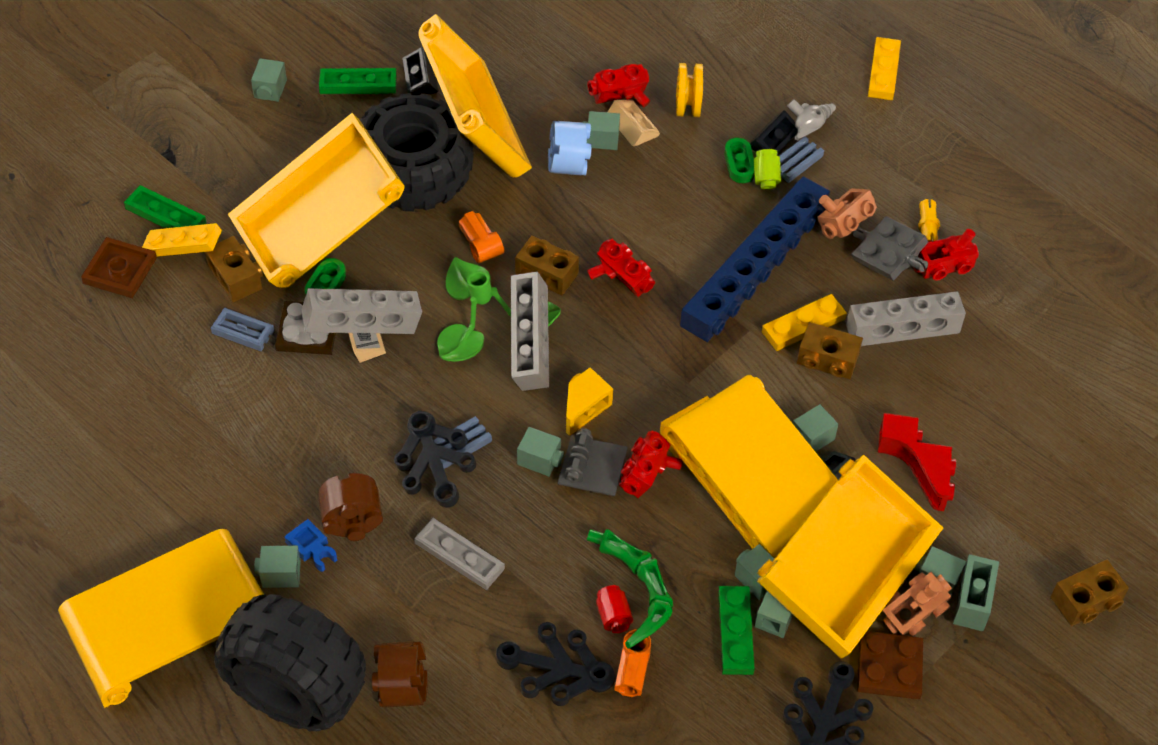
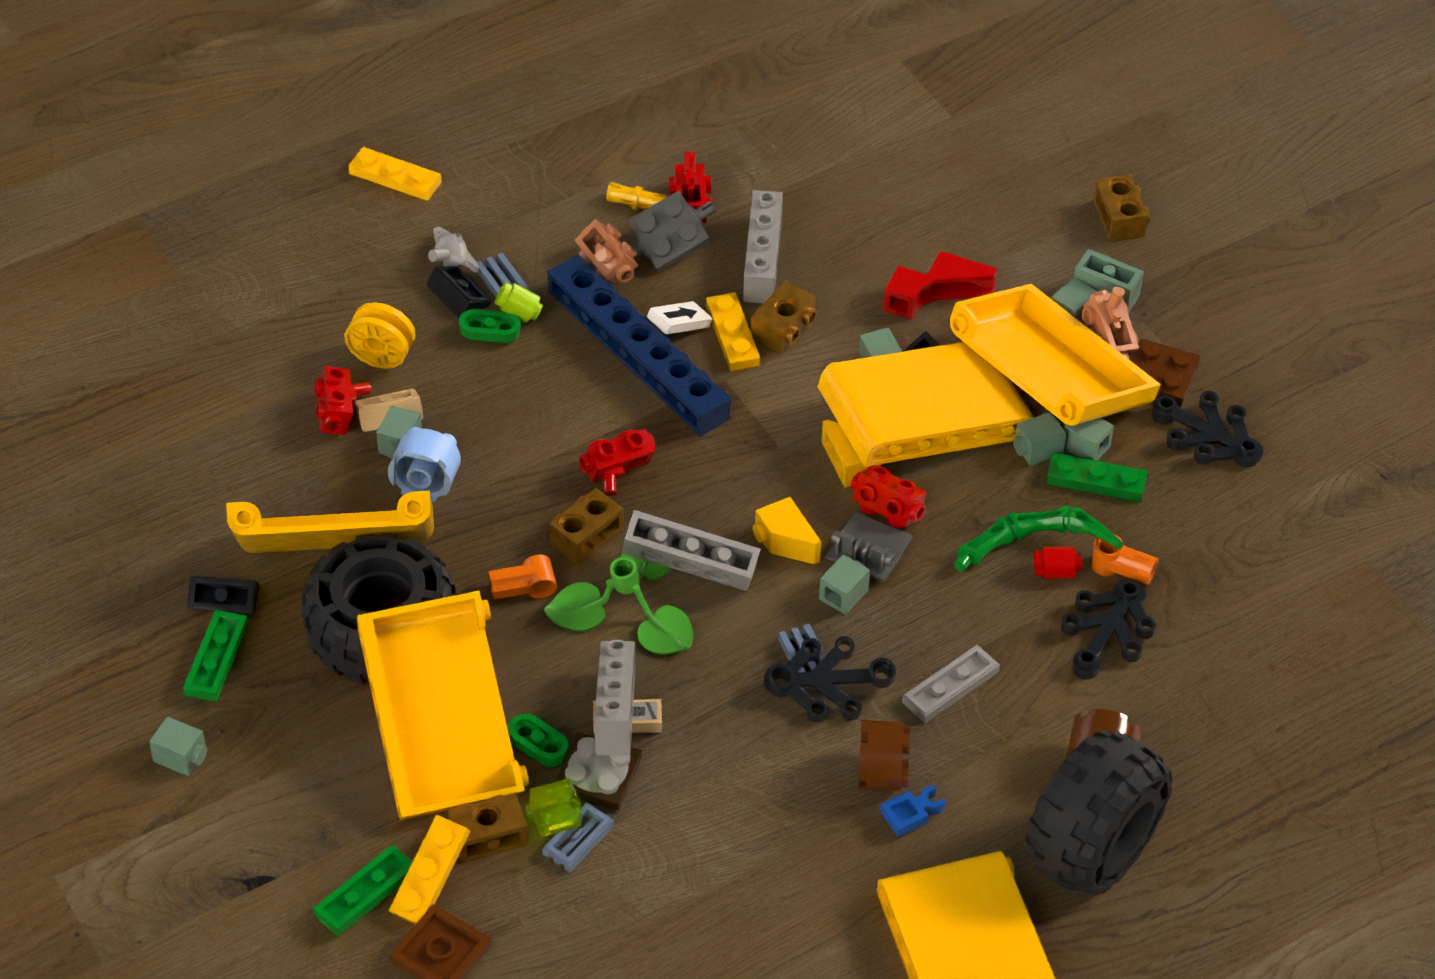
camera: 75 degrees left, 5 degrees down
(255, 302) = (554, 807): none -> clear neon green brick
(278, 566) = (935, 840): sand green brick -> none
(796, 277) = (679, 317): none -> white tile

